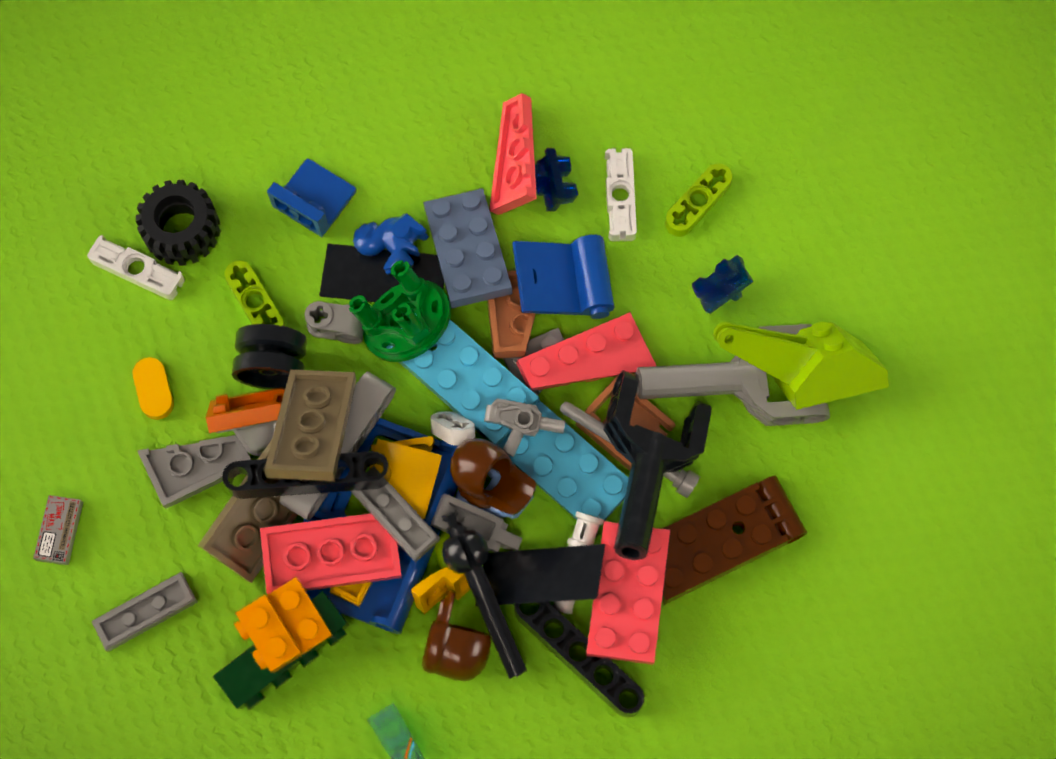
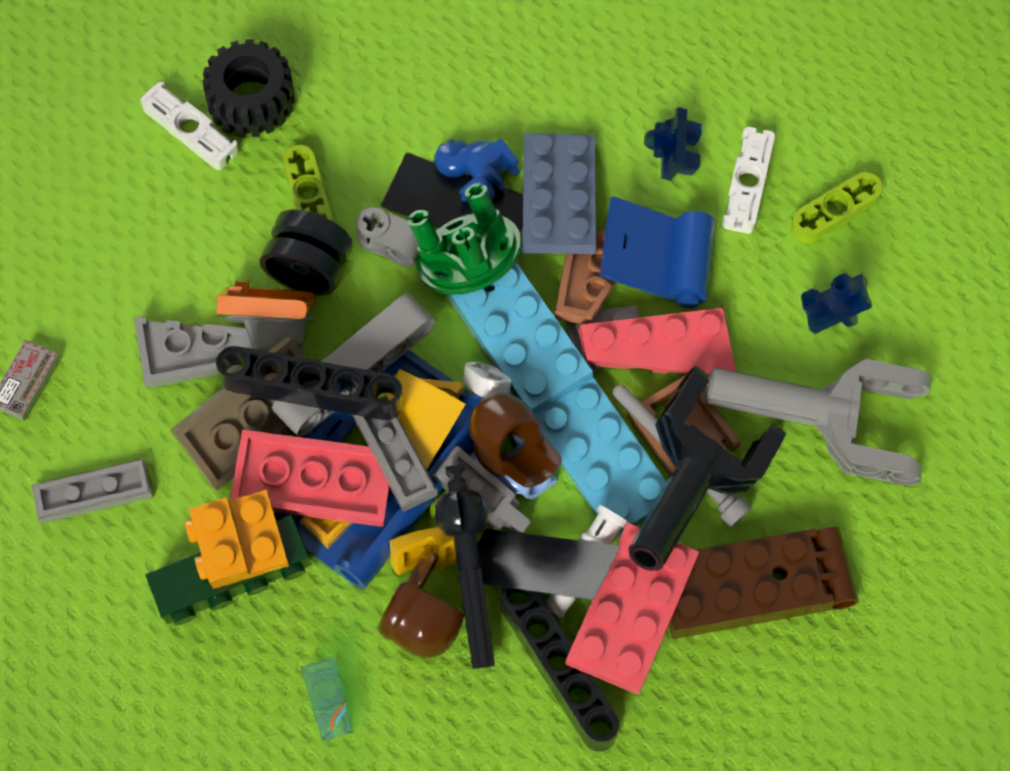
camera: 15 degrees right, 5 degrees down
(153, 388) = (170, 257): yellow tile -> none
(311, 425) = (329, 329): dark tan plate -> none
(312, 197) = (402, 98): blue bracket -> none
(515, 163) = (639, 112): coral wing -> none
(521, 419) = (565, 388): light grey piece -> none
(809, 367) = (911, 414): lime slope -> none

